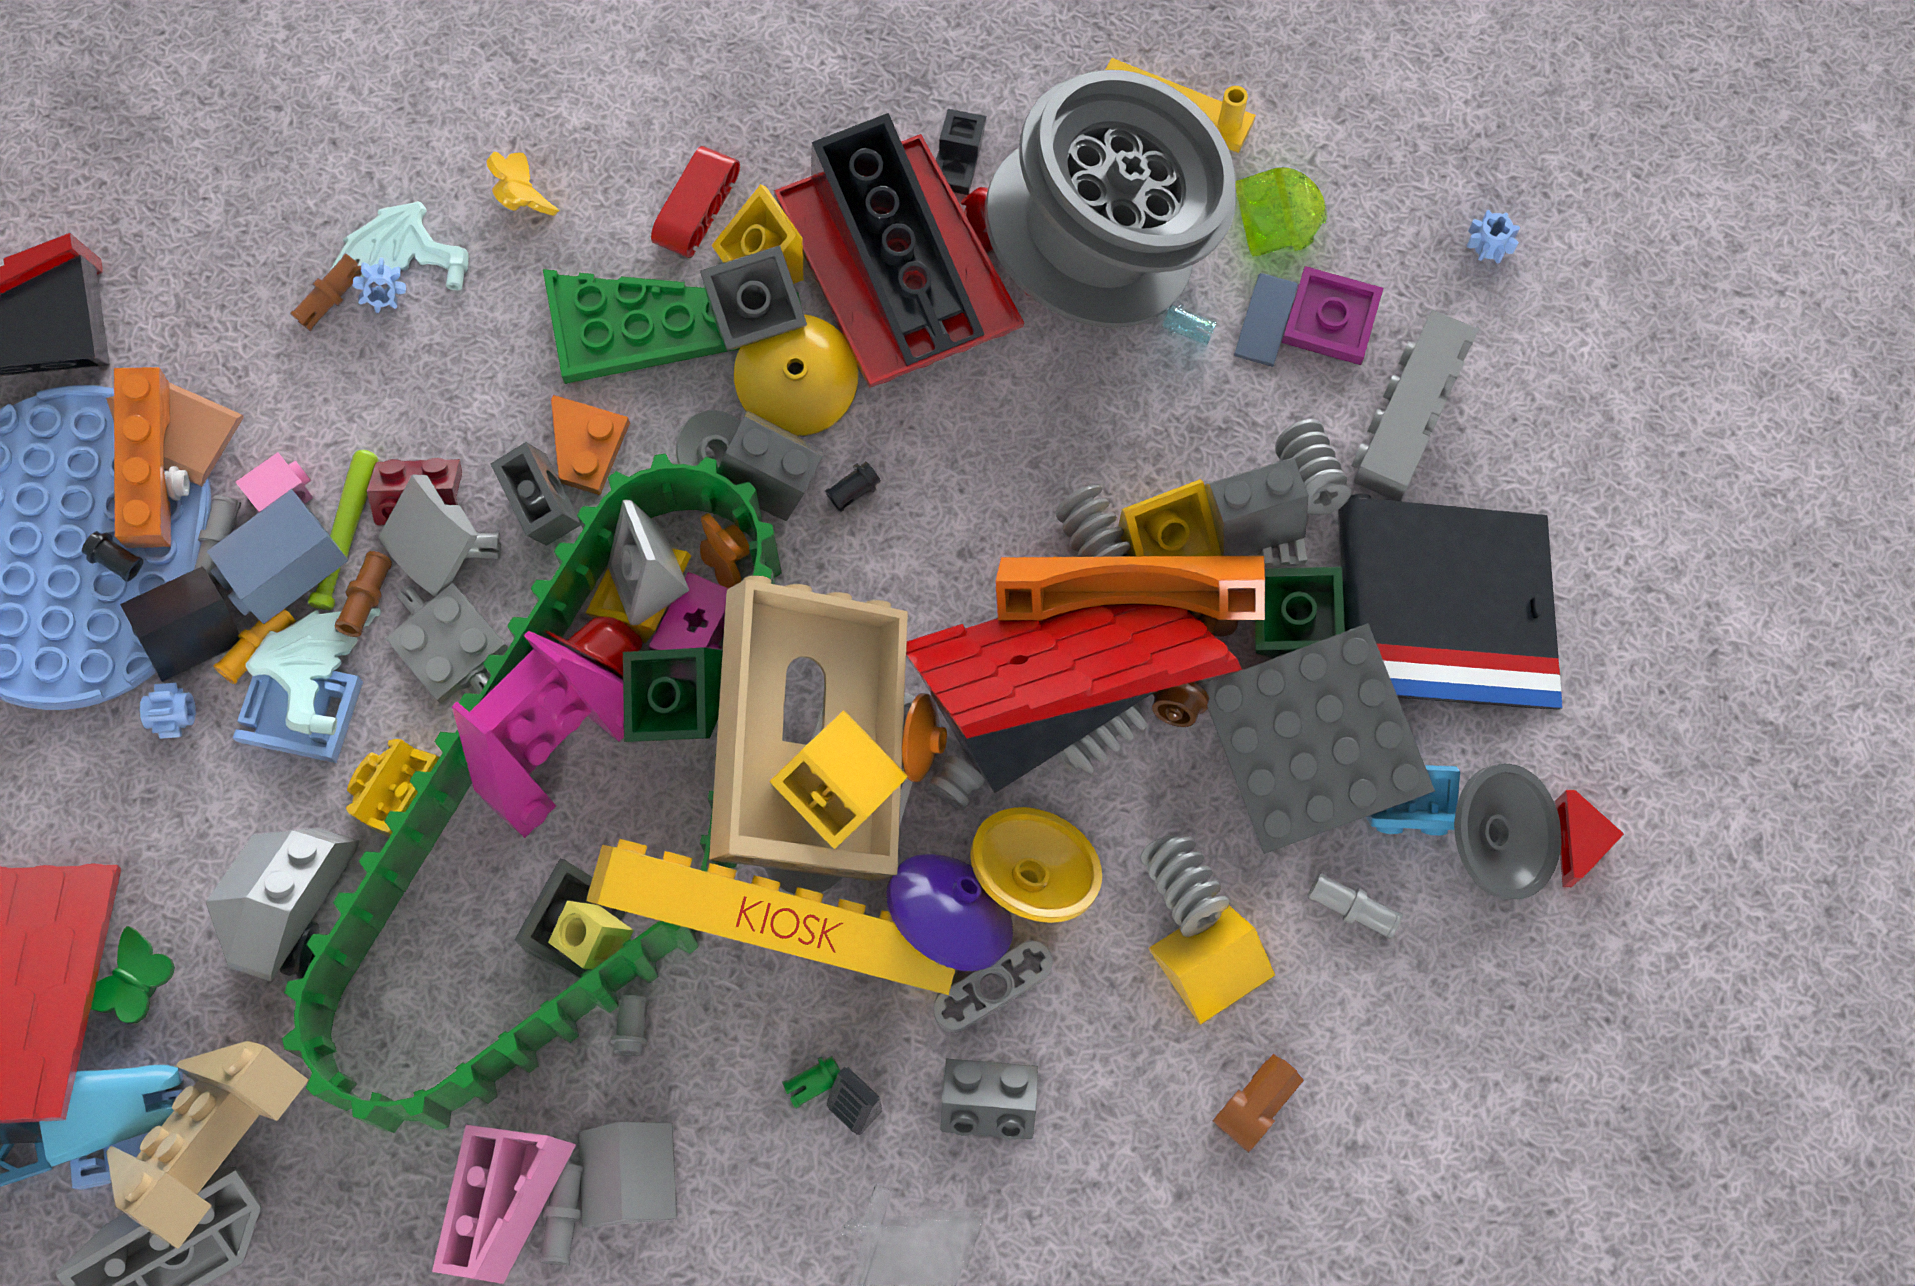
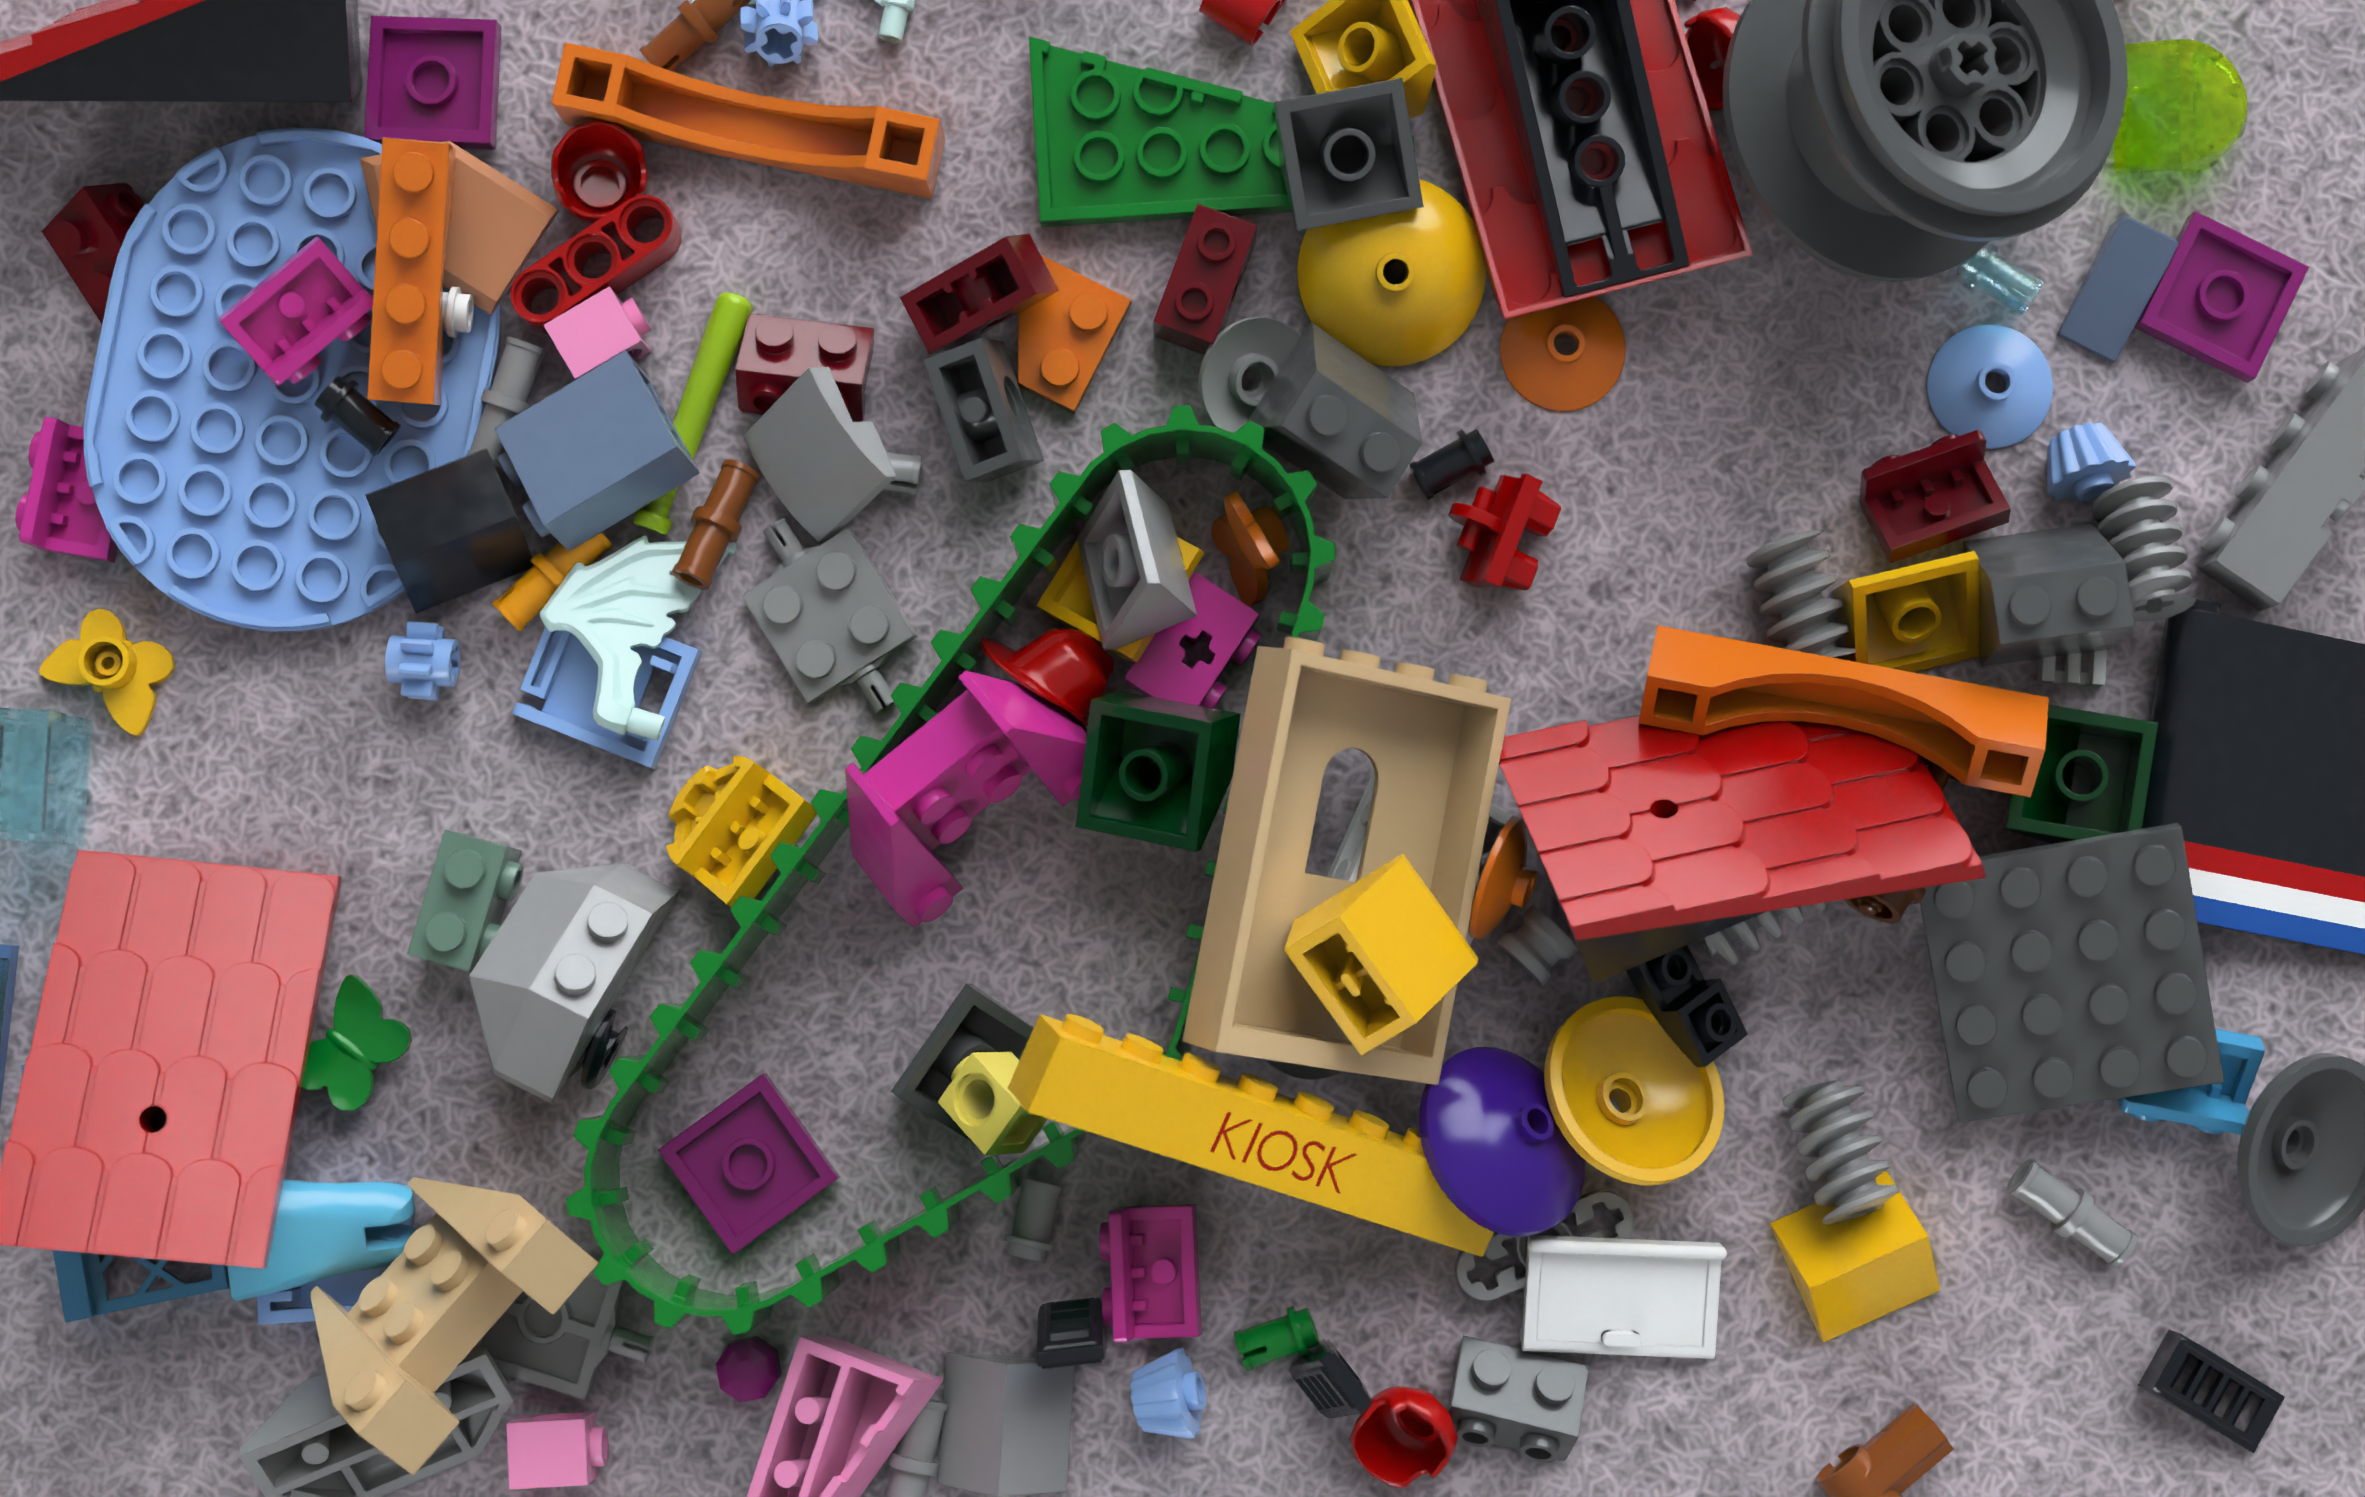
camera: 10 degrees right, 15 degrees up
(66, 493) = (299, 313): none -> dark pink bracket
(159, 340) = (433, 80): none -> magenta plate
(202, 859) = (465, 900): none -> sand green brick
(267, 387) = (597, 169): none -> red hair
(278, 425) = (609, 235): none -> red beam
(292, 341) = (830, 141): none -> orange arch
(293, 1155) = (565, 1347): none -> light grey plate
(296, 1244) = (555, 1450): none -> bright pink brick
(422, 1017) = (749, 1163): none -> magenta plate
(434, 1165) = (748, 1369): none -> magenta tile
(527, 415) = (979, 293): none -> dark red brick
(665, 1099) = (1071, 1333): none -> black slope
(673, 393) = (1204, 279): none -> dark red brick
(717, 1047) = (1151, 1272): none -> dark pink bracket
(740, 1132) = (1169, 1396): none -> light blue piece
(898, 506) = (1495, 527): none -> red hips
(912, 1133) = (1403, 1436): none -> red hair
(918, 425) = (1561, 380): none -> orange dish
(1066, 809) = (1687, 1006): none -> black slope
(1067, 1006) = (1622, 1287): none -> white door
(1169, 456) = (1932, 496): none -> dark red bracket
(1193, 407) = (1965, 403): none -> light blue dish
(1263, 423) = (2085, 463): none -> light blue piece
(1439, 1014) = (2169, 1364): none -> black slope

